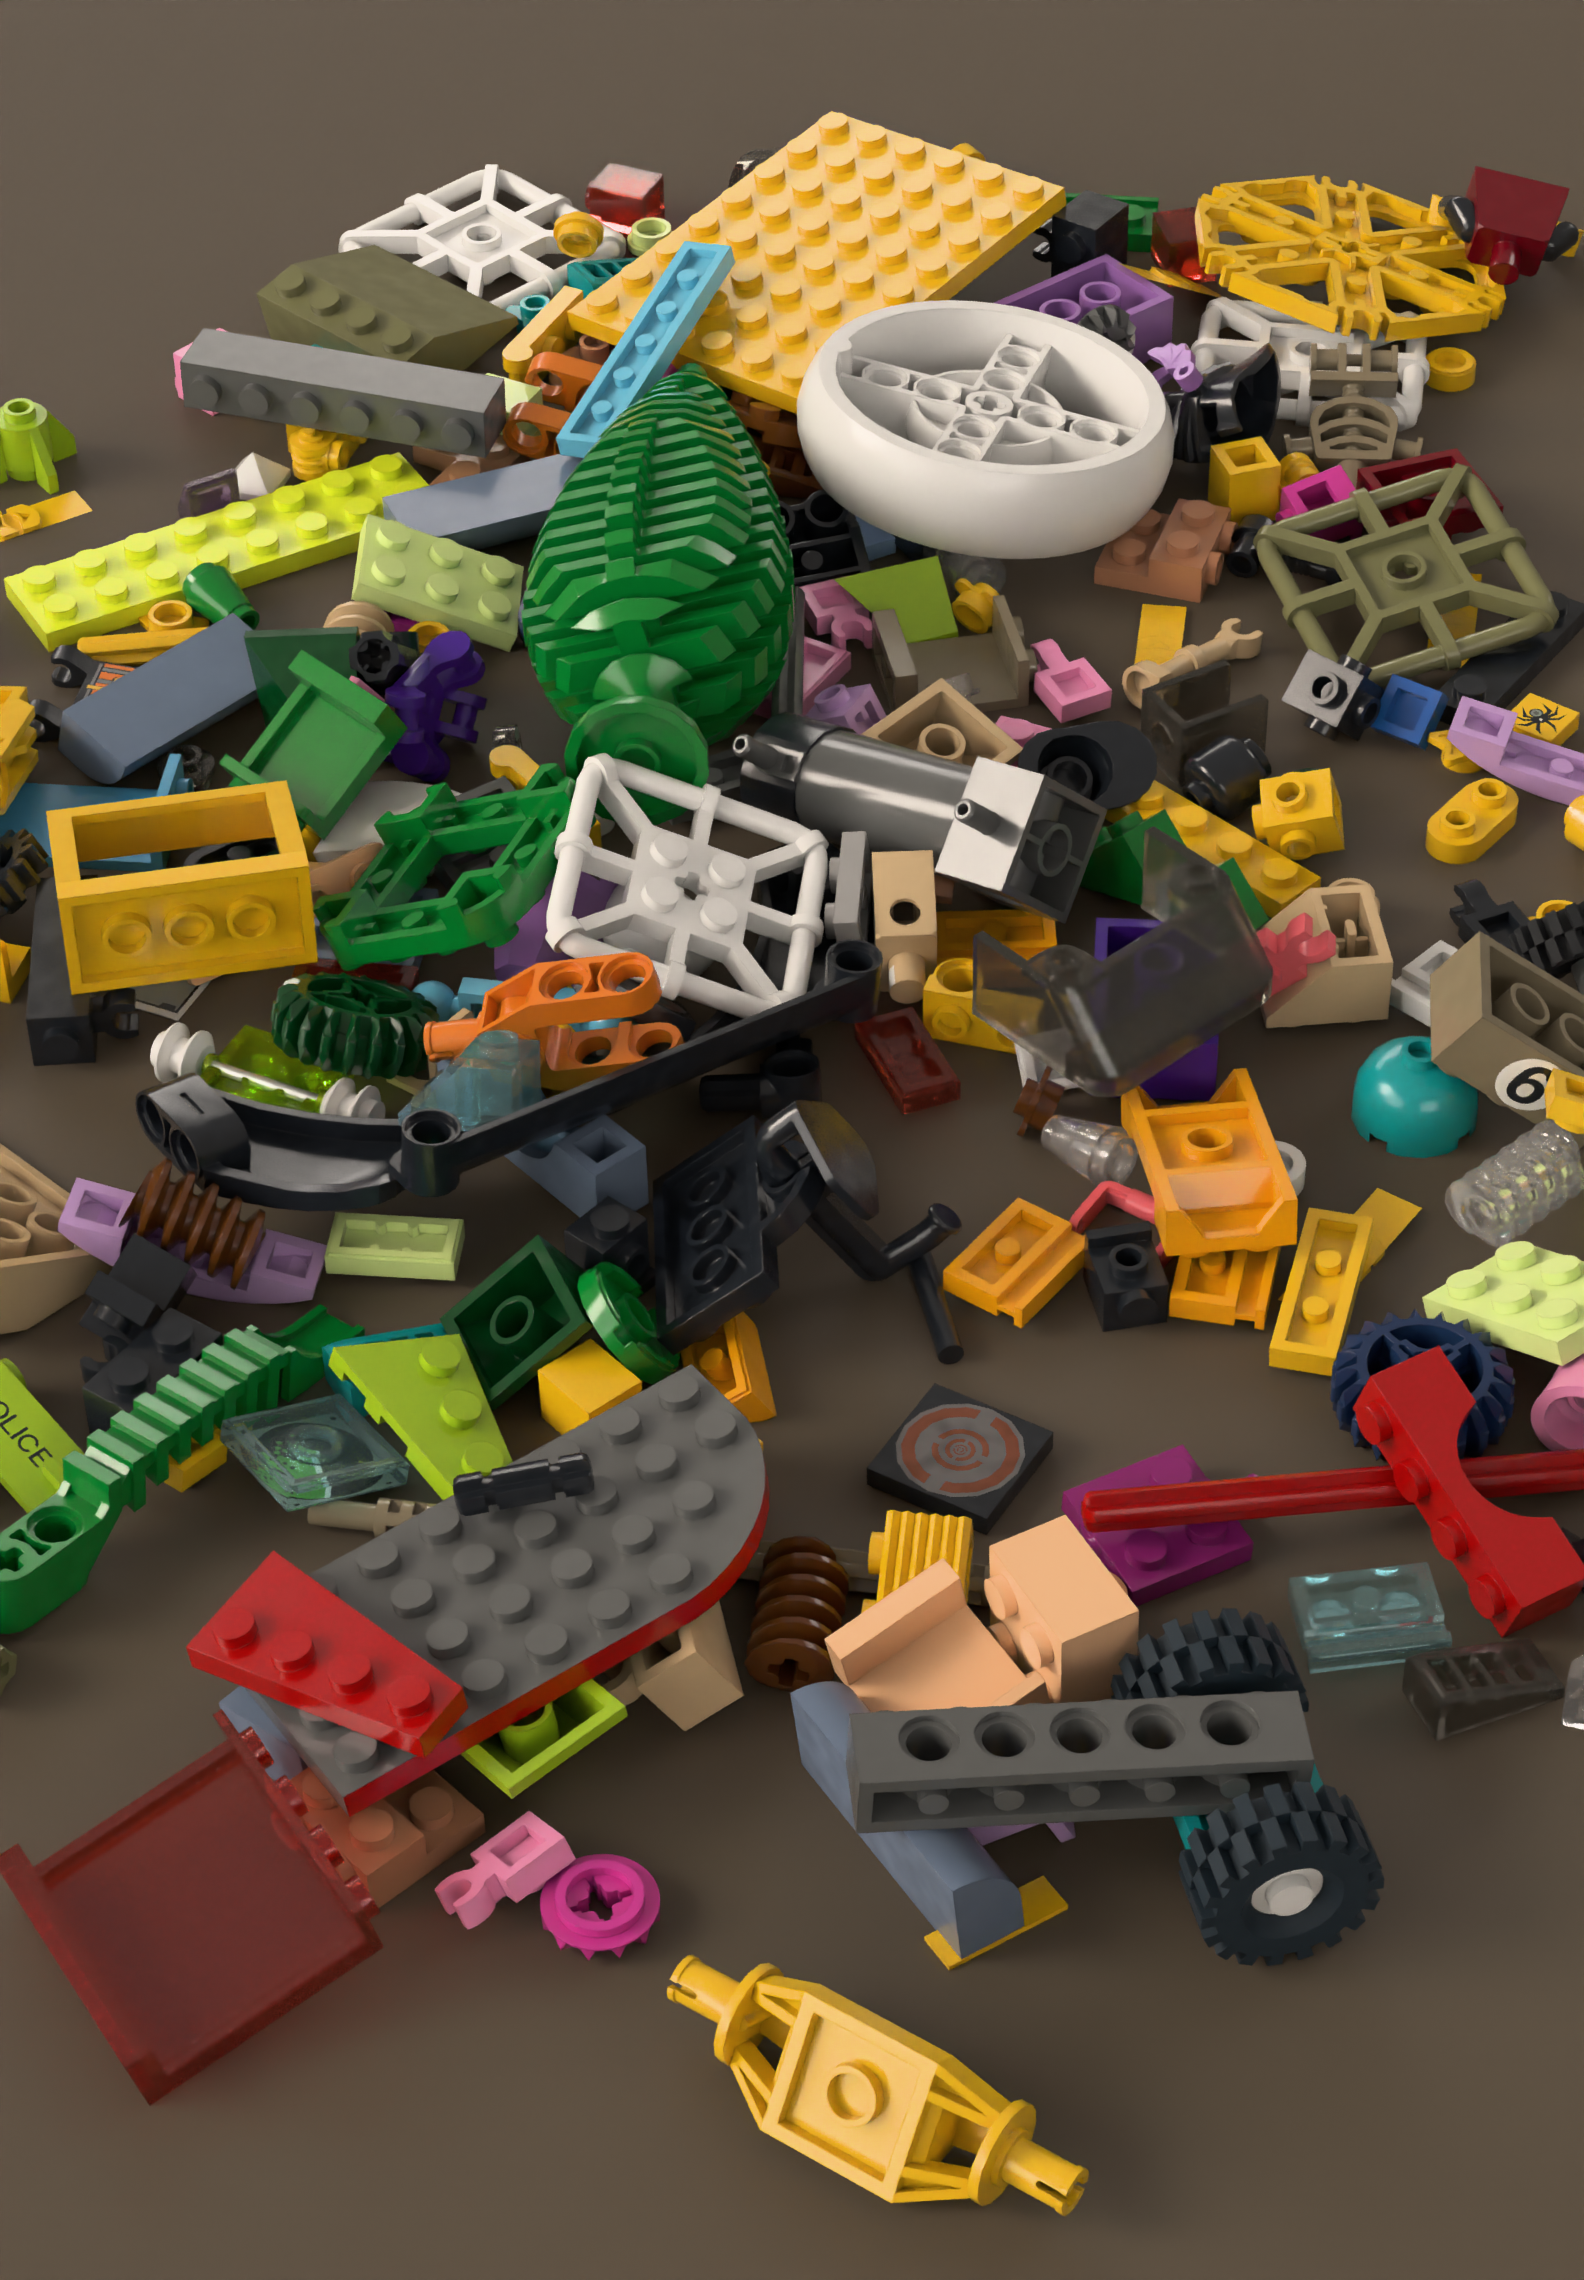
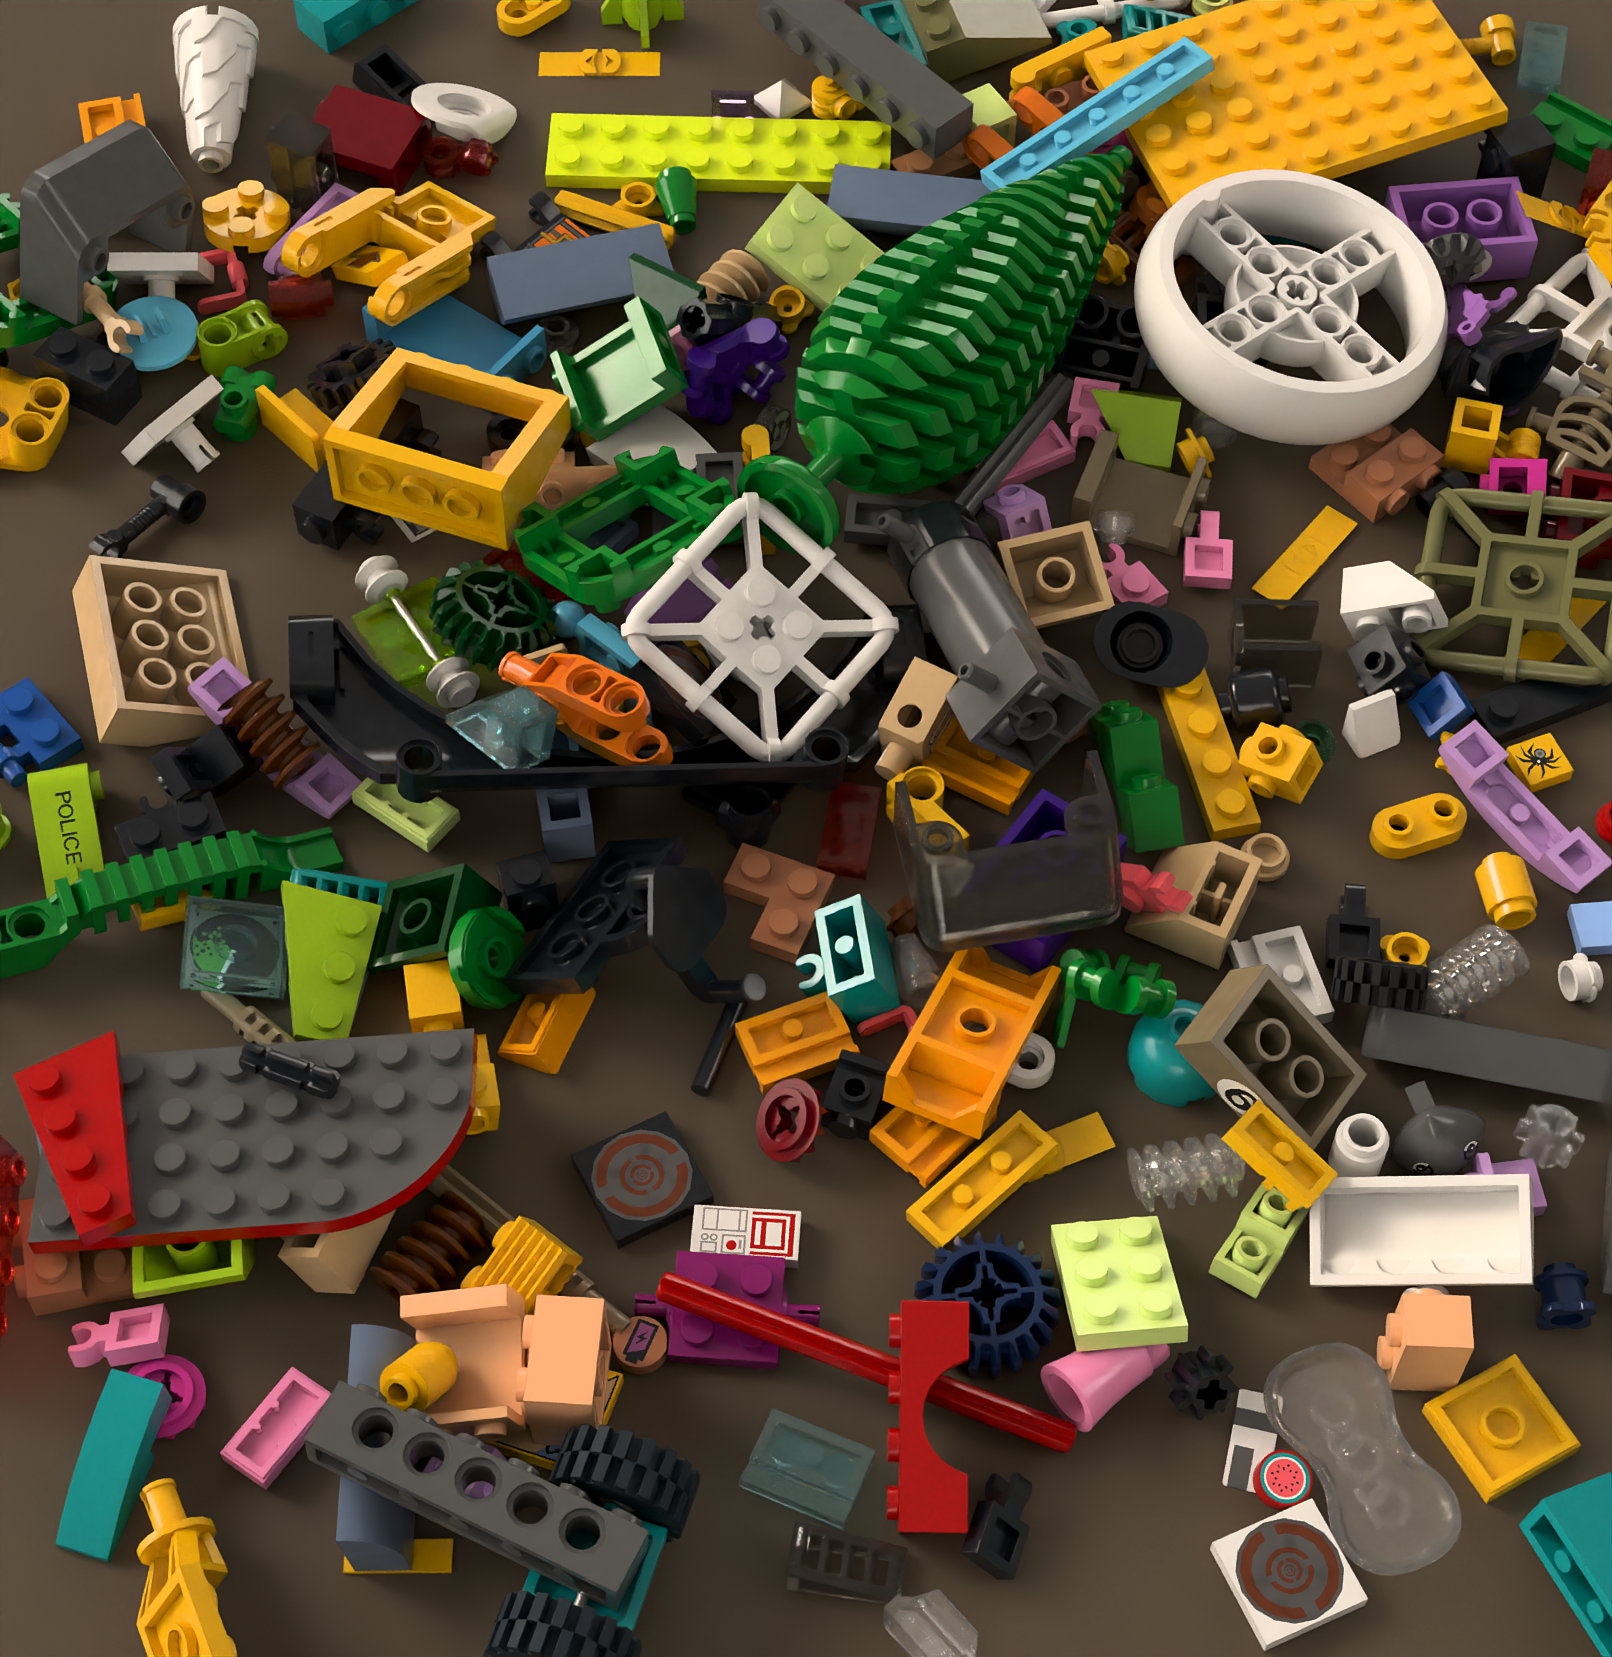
camera: 30 degrees right, 15 degrees up
(607, 1985) = (112, 1464): none -> teal slope
(763, 1864) = (276, 1428): none -> bright pink plate
(852, 883) = (875, 693): light grey plate -> none
(904, 1156) = (787, 892): none -> nougat plate
(908, 1683) = (419, 1376): none -> yellow brick
(1020, 1157) = (853, 960): none -> teal brick
(1025, 157) = (1541, 57): none -> clear light blue plate
(1070, 1298) = (775, 1120): none -> dark red gear
(1111, 1447) = (747, 1232): none -> white tile
(1226, 645) = (1314, 579): tan piece -> none
(1278, 633) = (1387, 595): none -> white slope
(1314, 1055) = (1127, 988): none -> green piece
(1356, 754) = (1372, 724): none -> white slope

